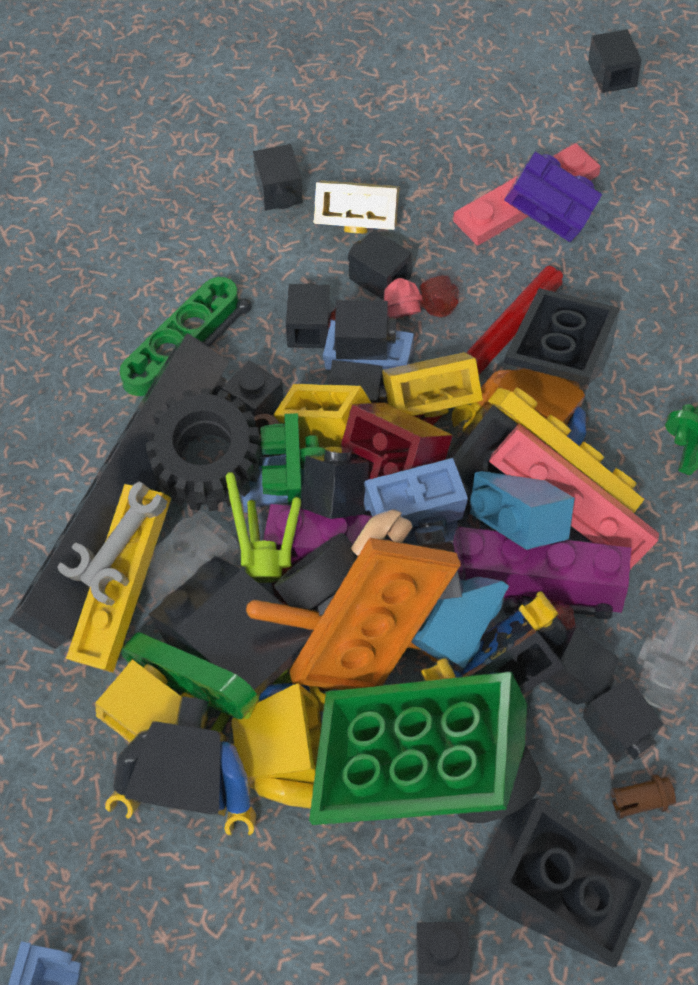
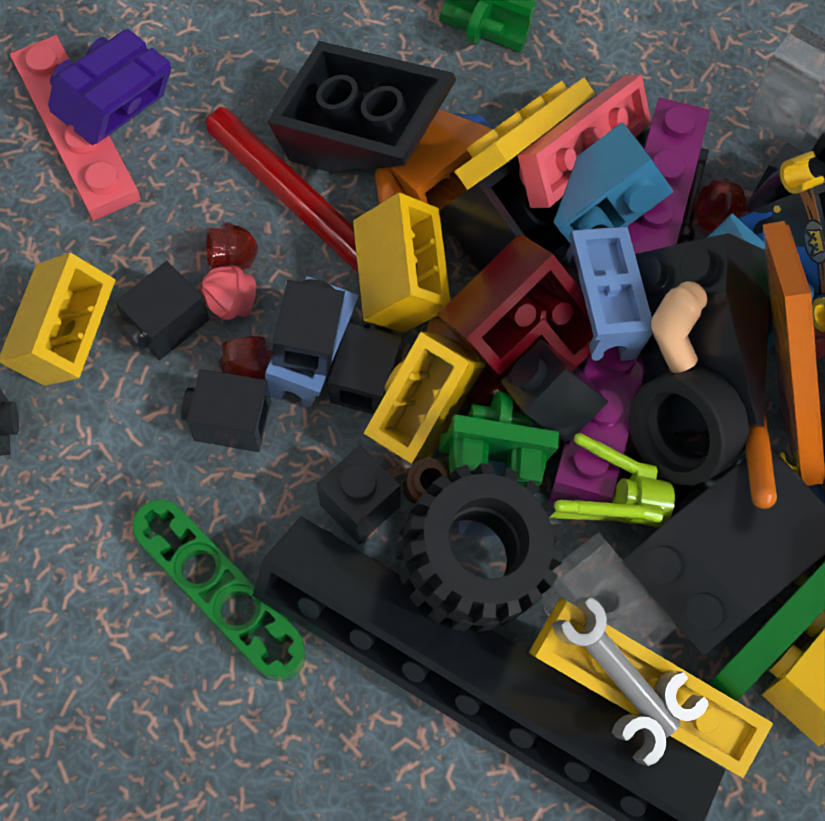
camera: 85 degrees left, 10 degrees up
(243, 306) = (245, 561): black hinge -> none

